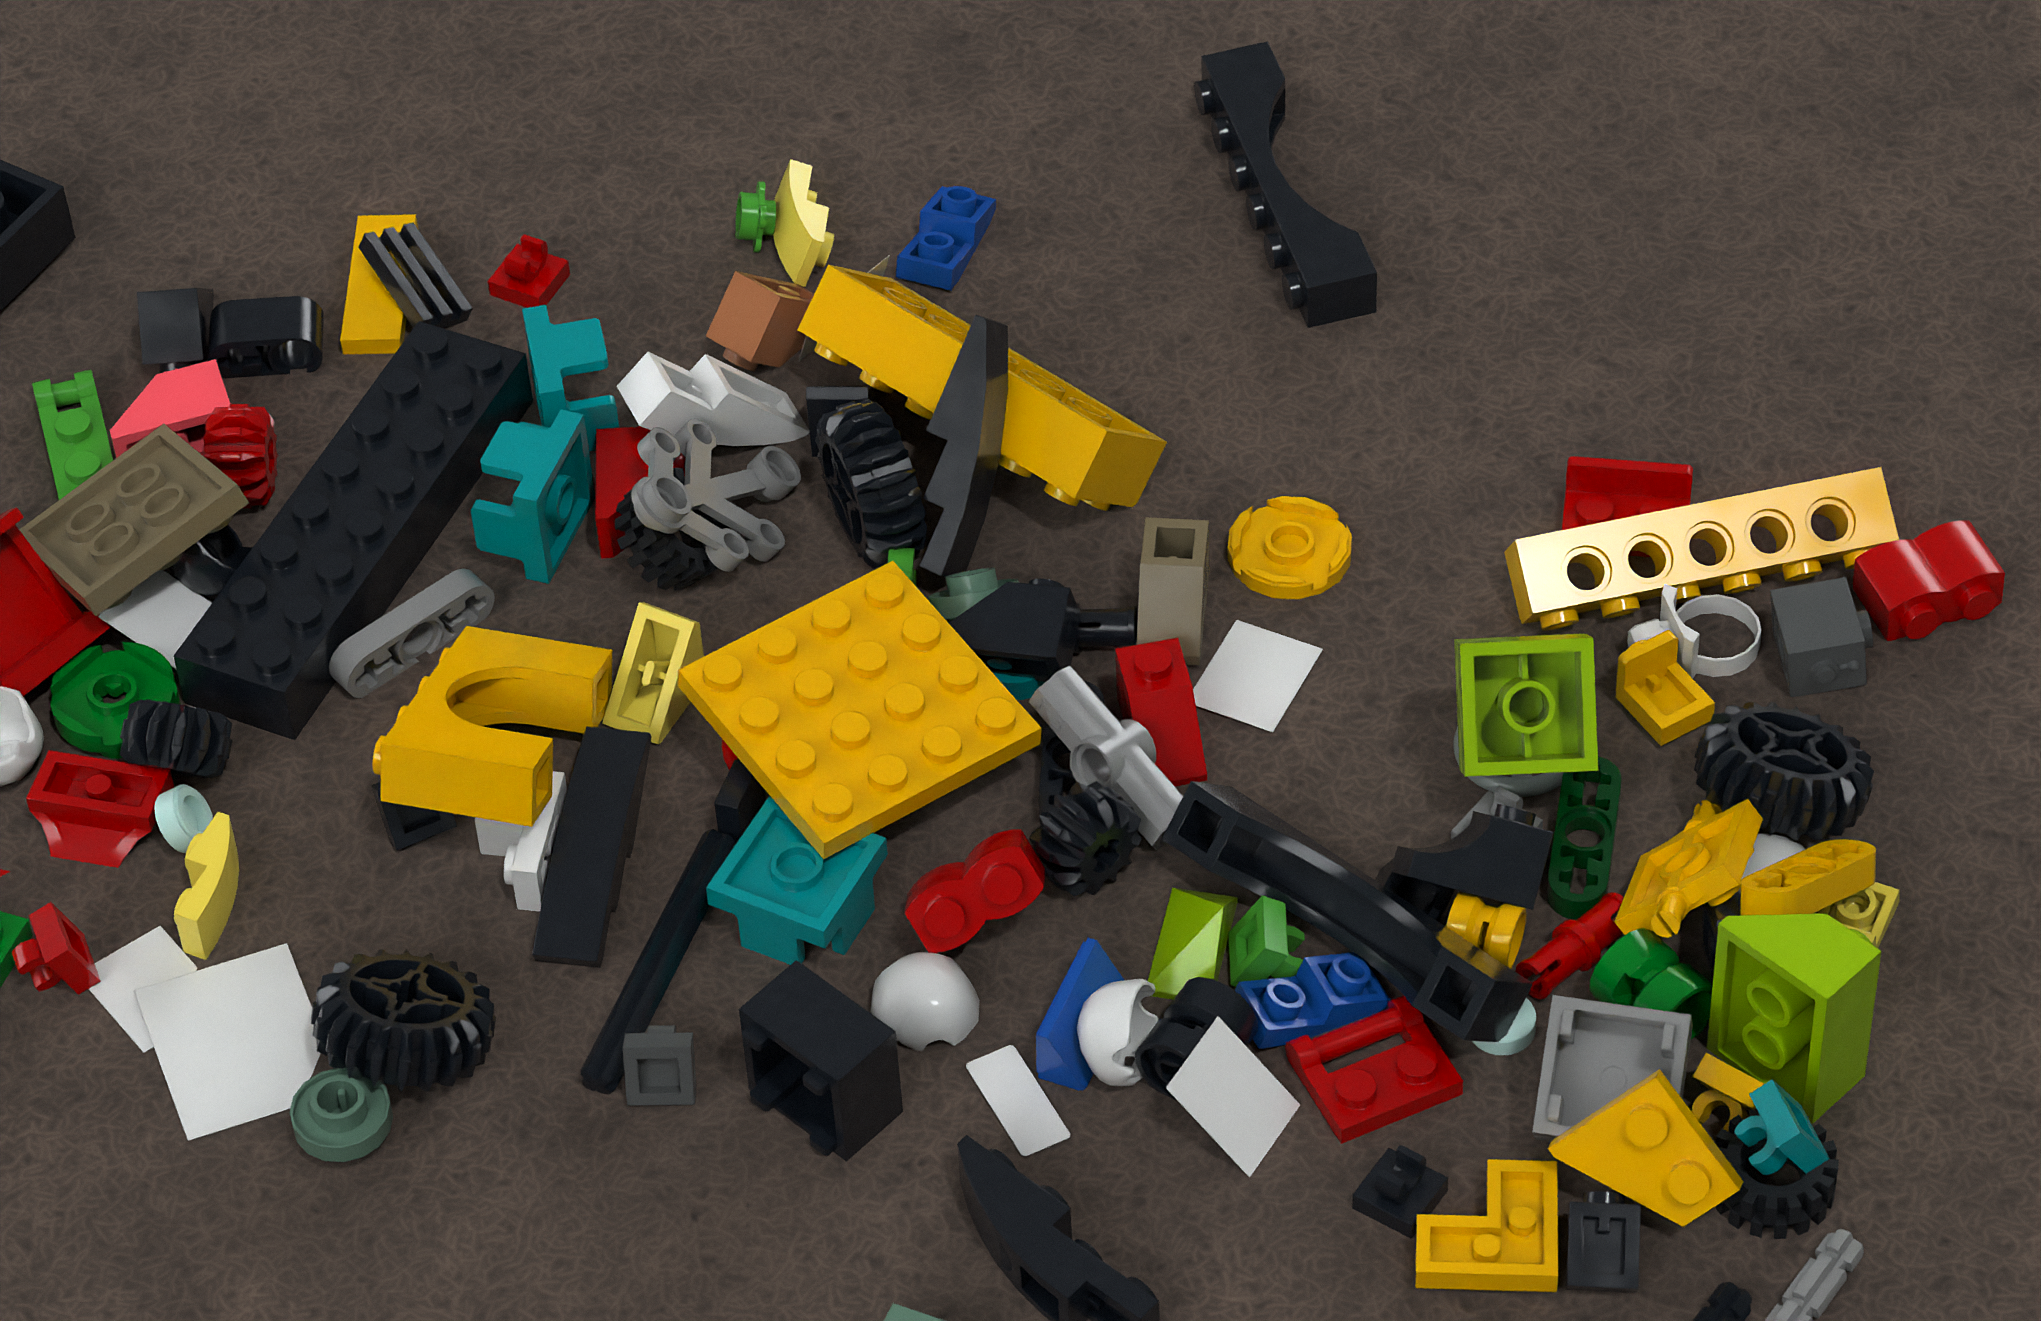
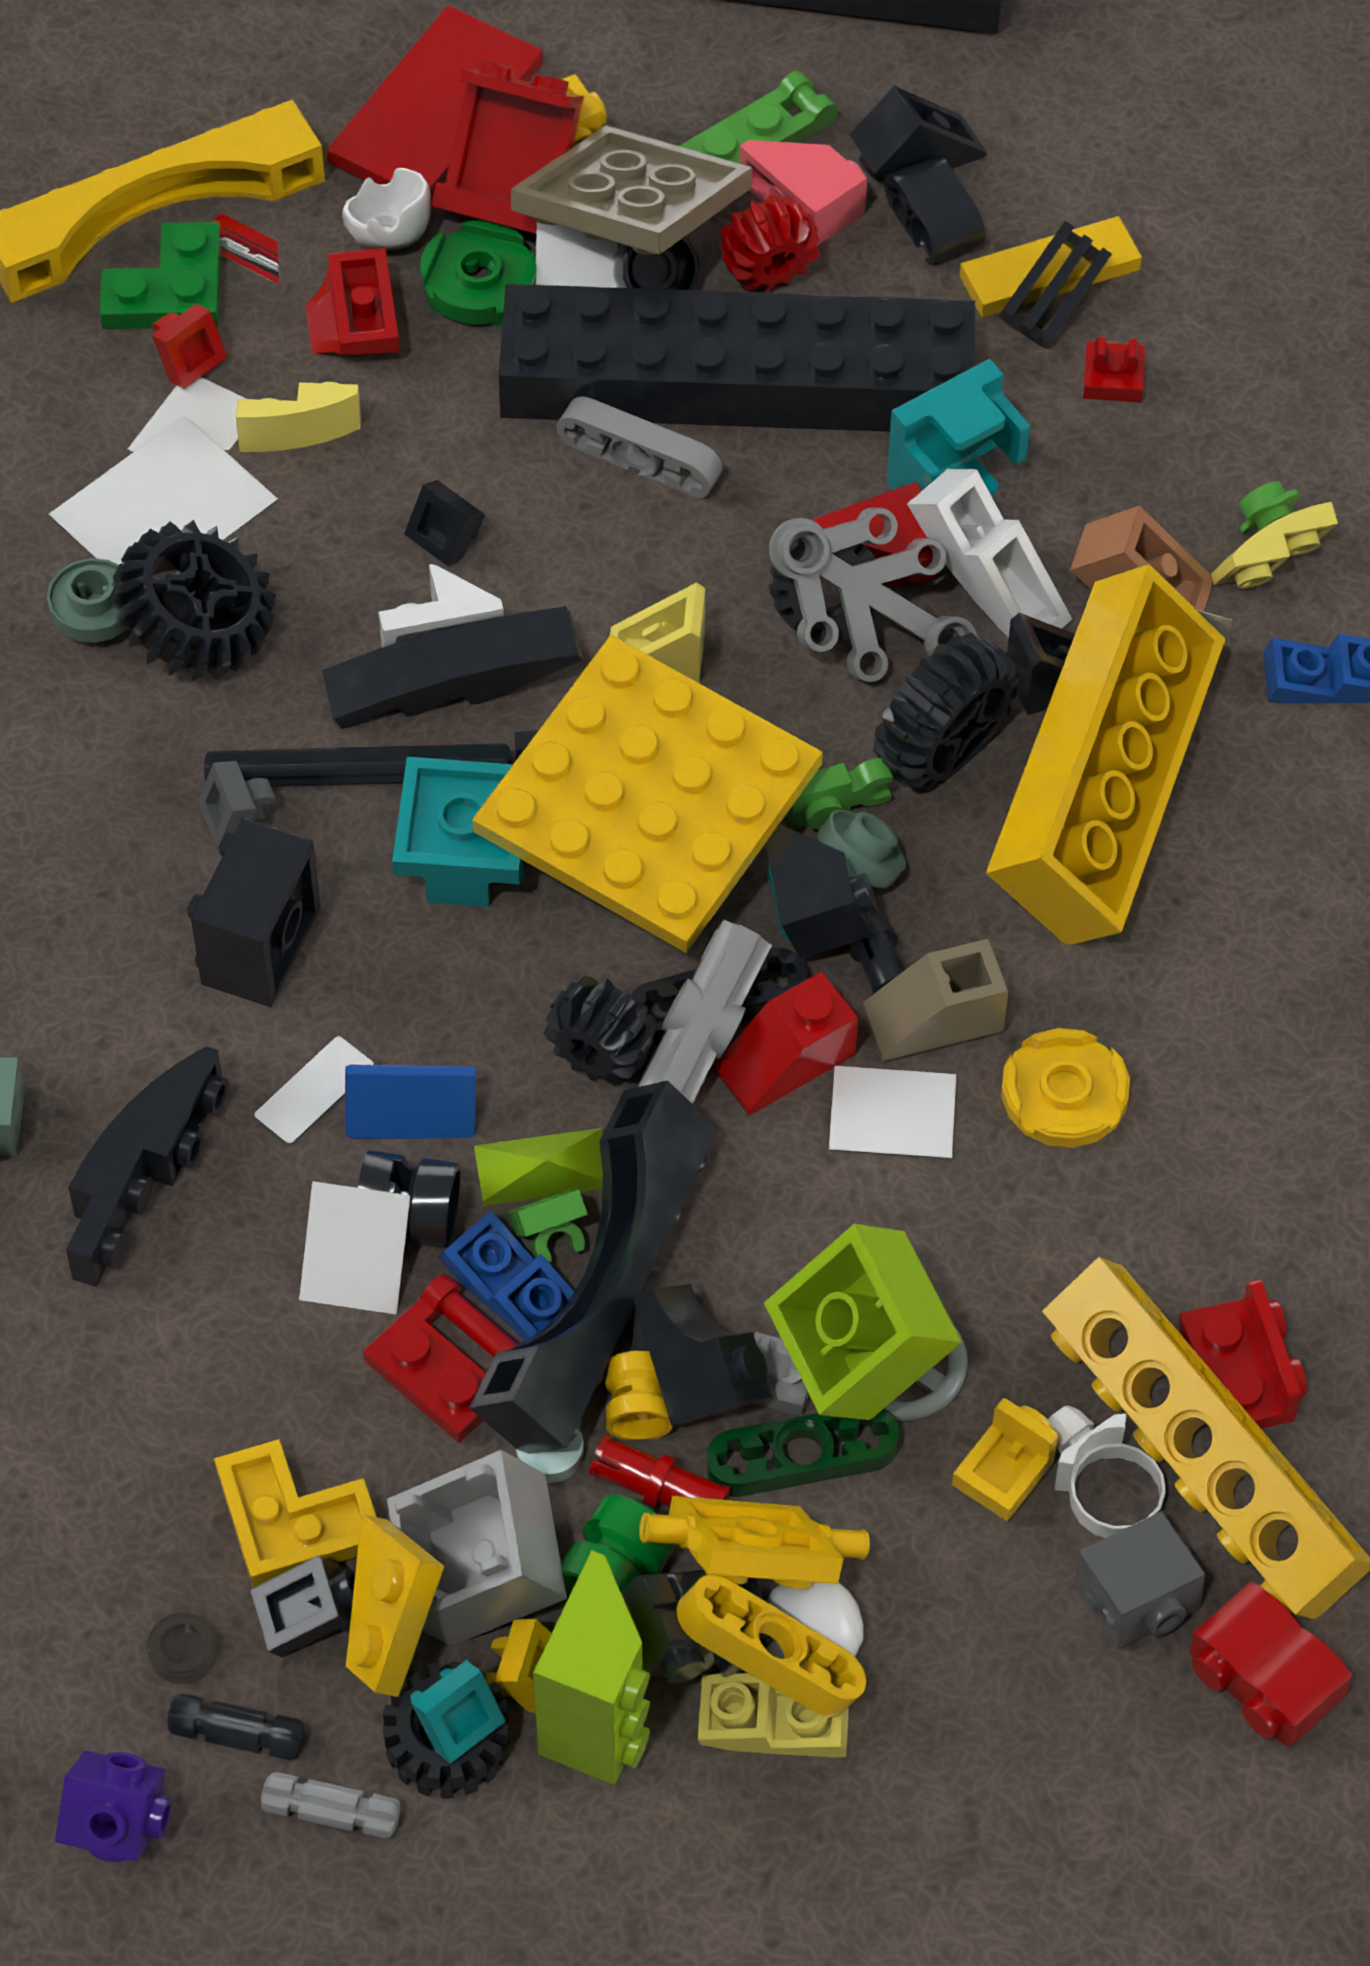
camera: 65 degrees right, 10 degrees up
(176, 738) = (429, 326): black gear -> none
(181, 815) = (366, 366): light aqua tile -> none
(451, 763) = (587, 511): yellow arch -> none
(548, 501) = (816, 464): teal panel -> none
(925, 1000) = (387, 979): white hair -> none
(973, 423) = (1005, 756): black slope -> none
(991, 884) = (495, 962): red brick -> none
(1115, 1027) = (392, 1124): white hair -> none
(1400, 1190) = (317, 1423): black tile -> none
(1789, 767) = (896, 1590): black gear -> none

